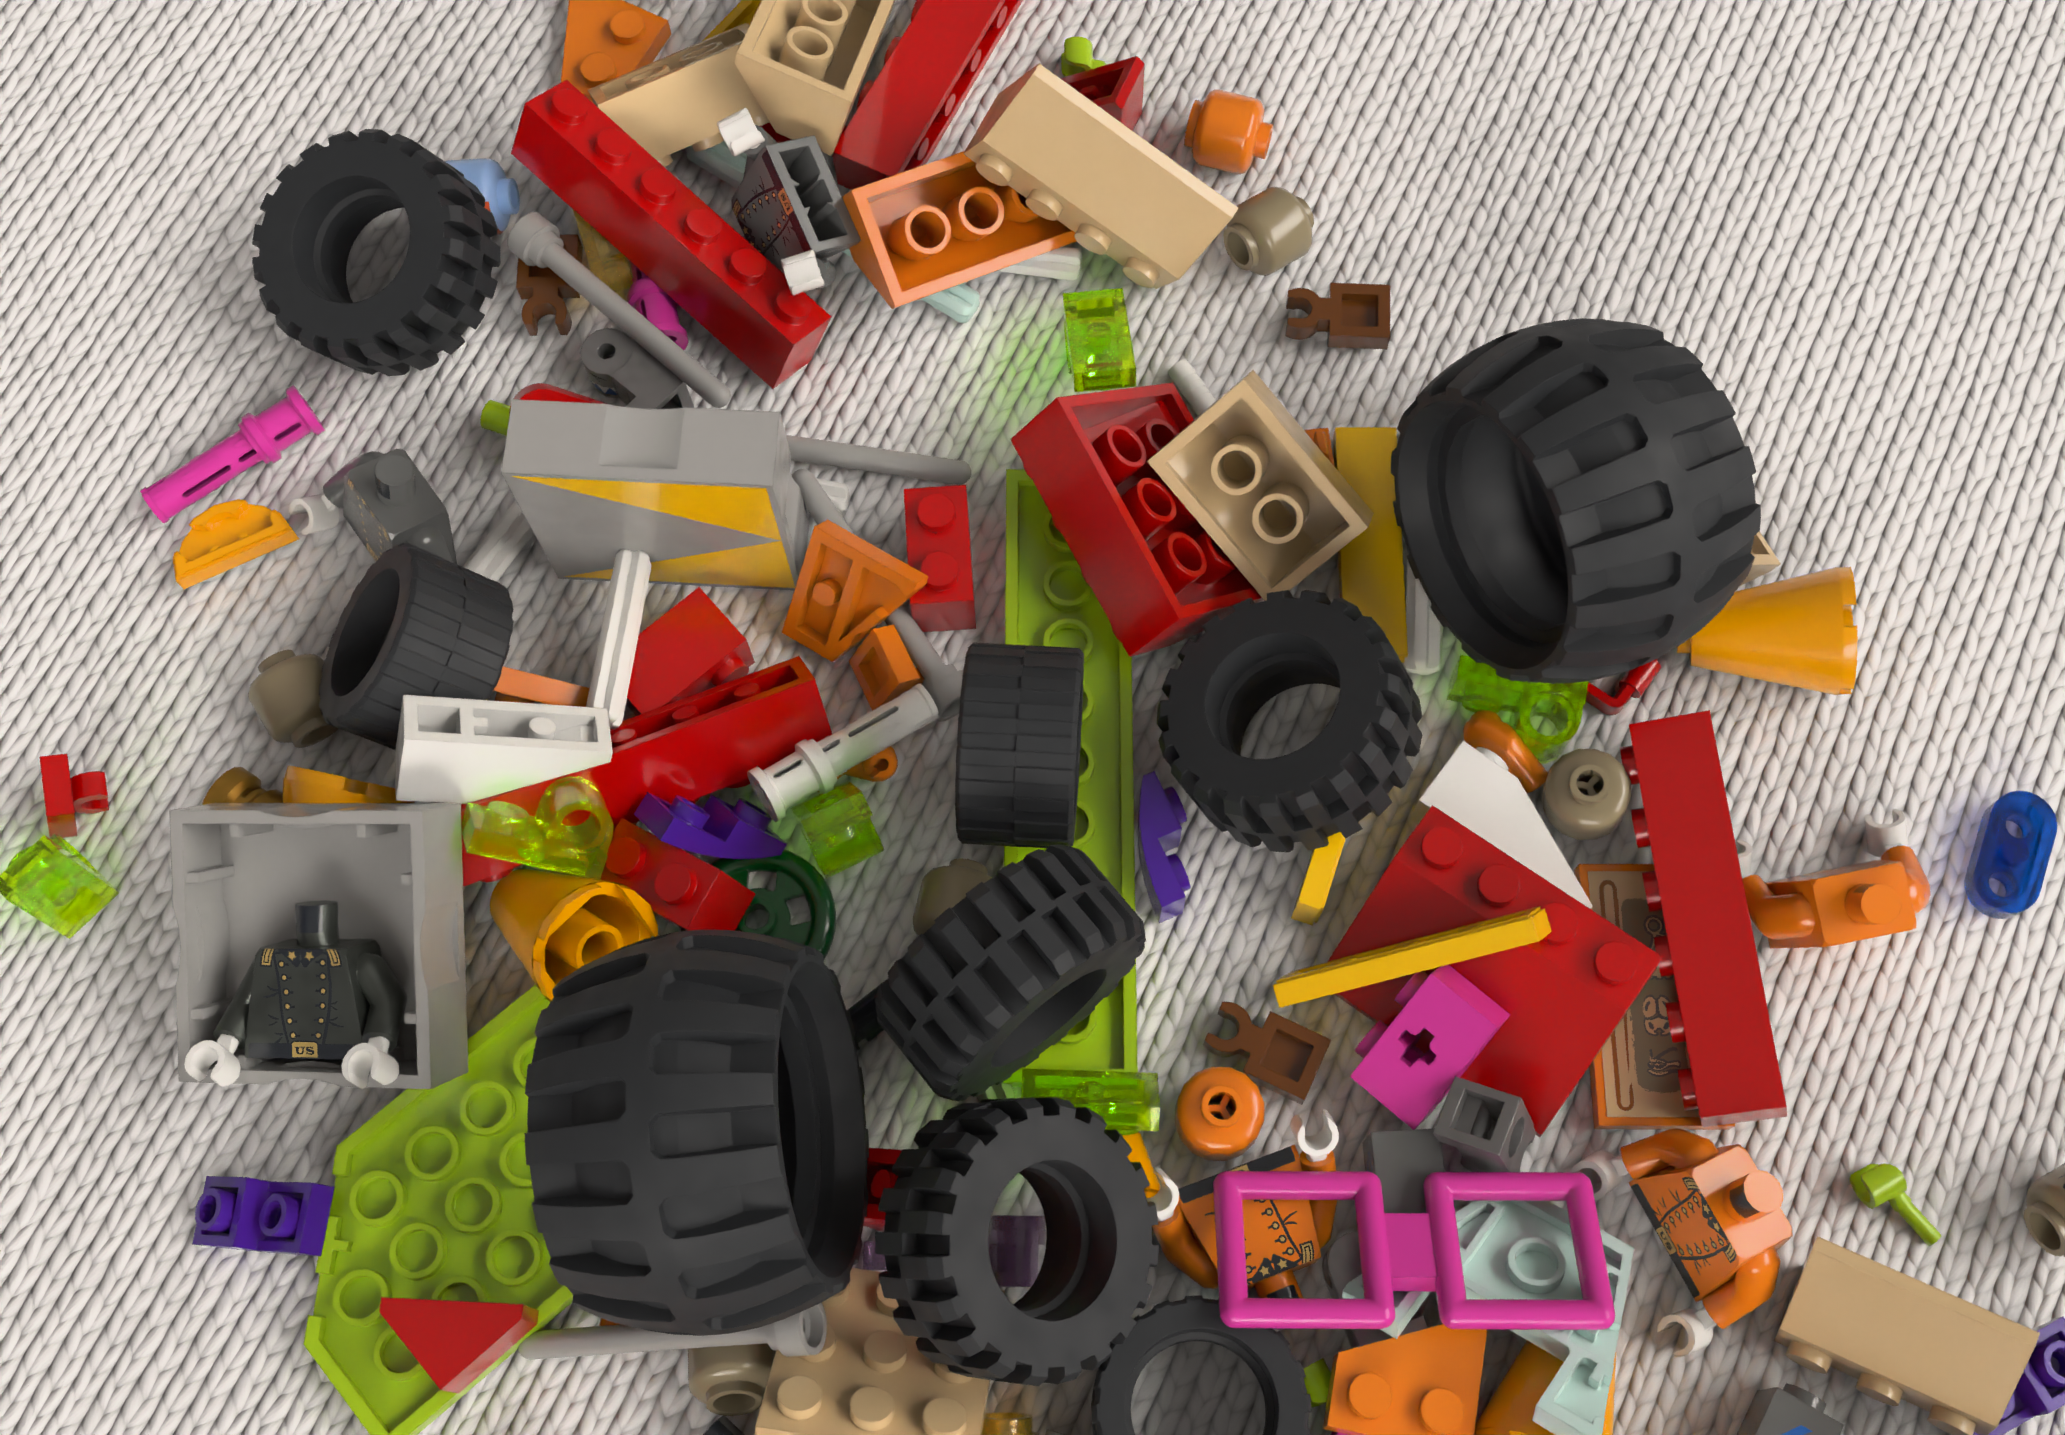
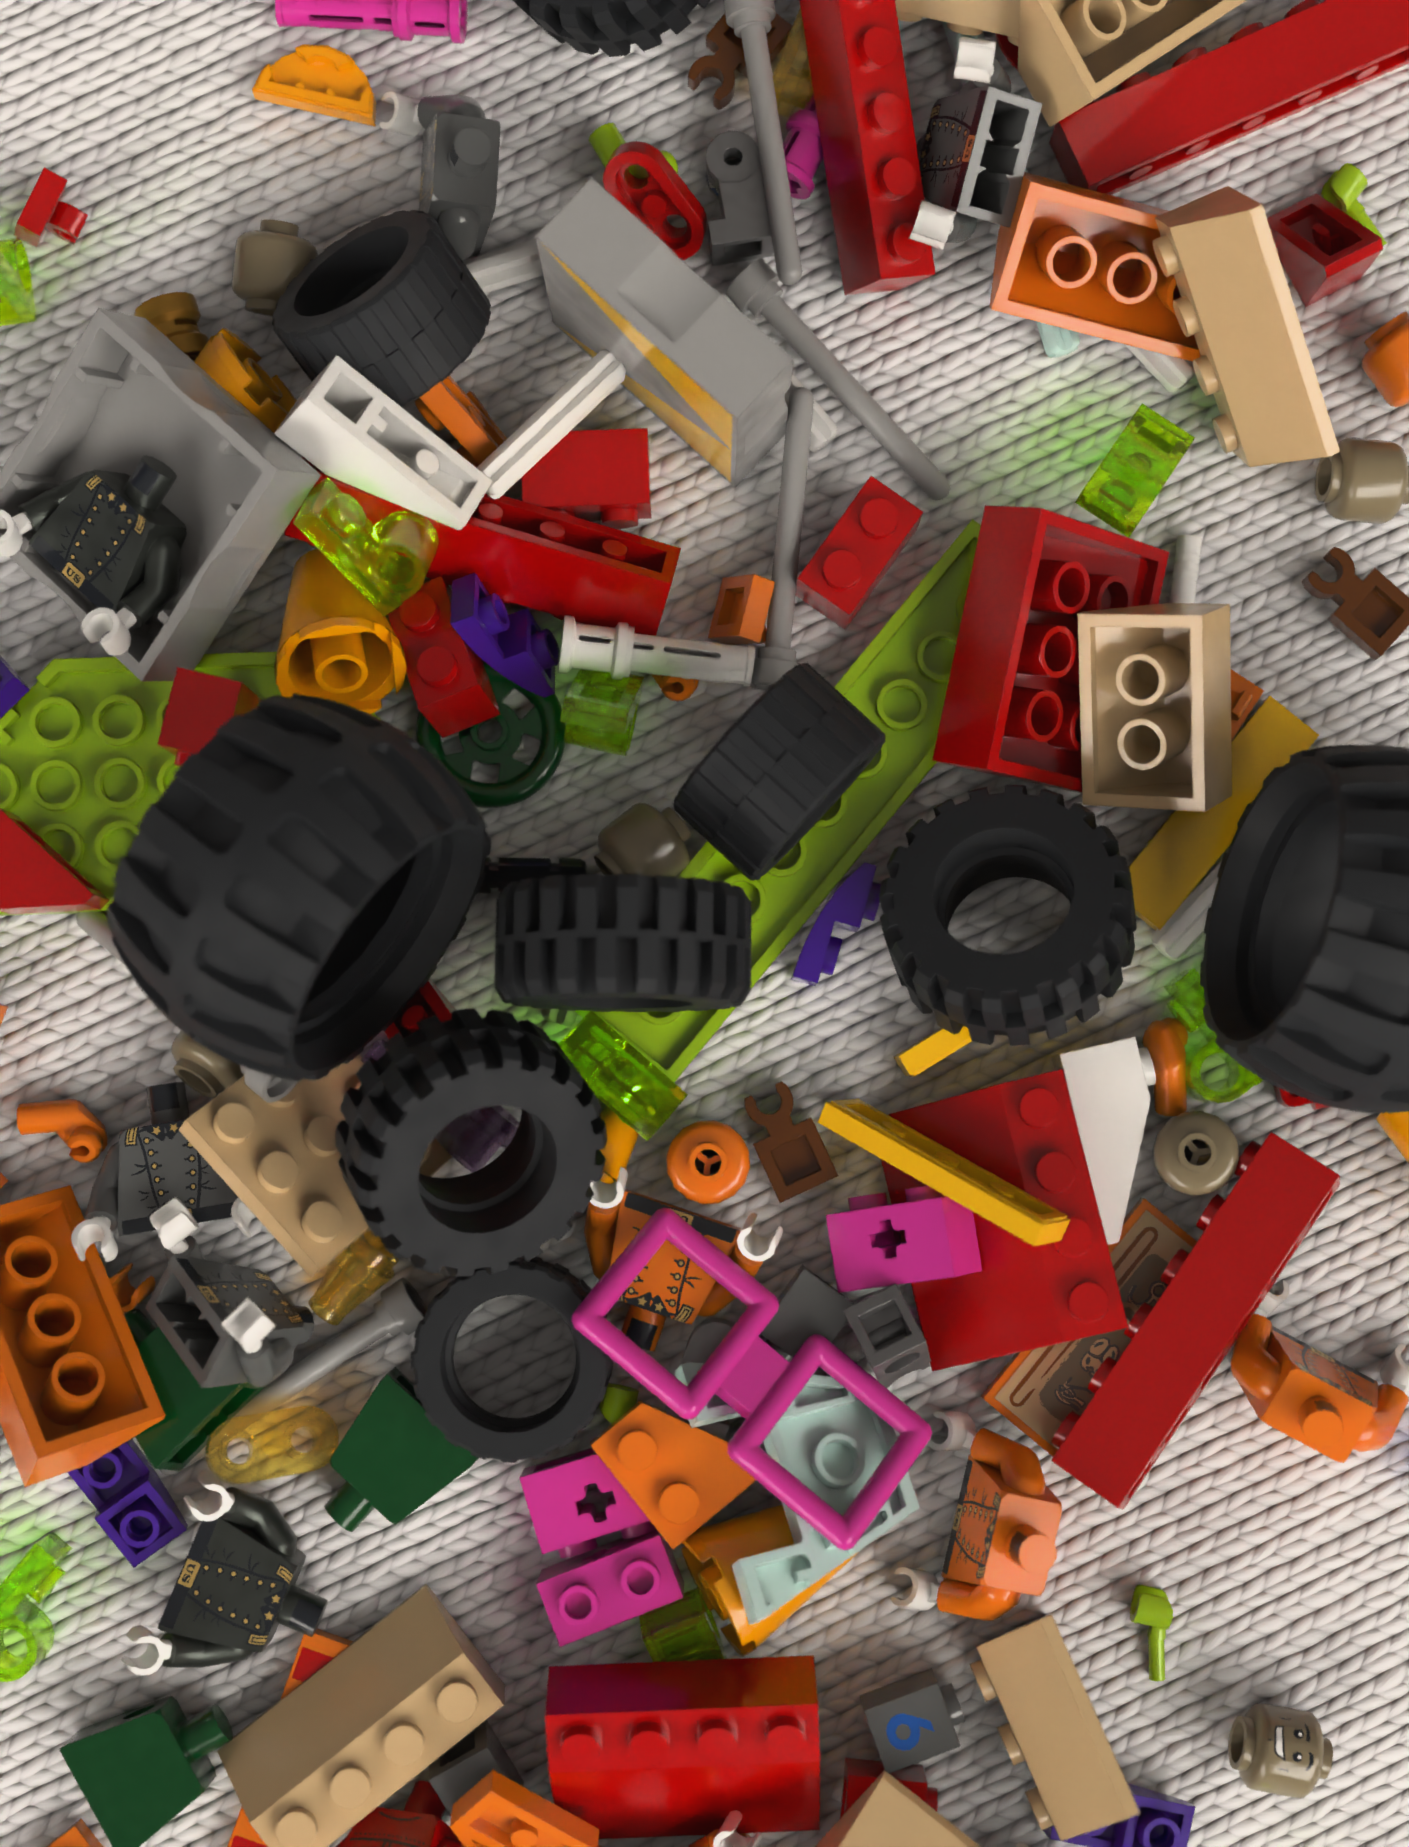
camera: 40 degrees right, 15 degrees up
(498, 1071) = (199, 707): none -> red brick
(845, 591) = (758, 524): orange wing -> none

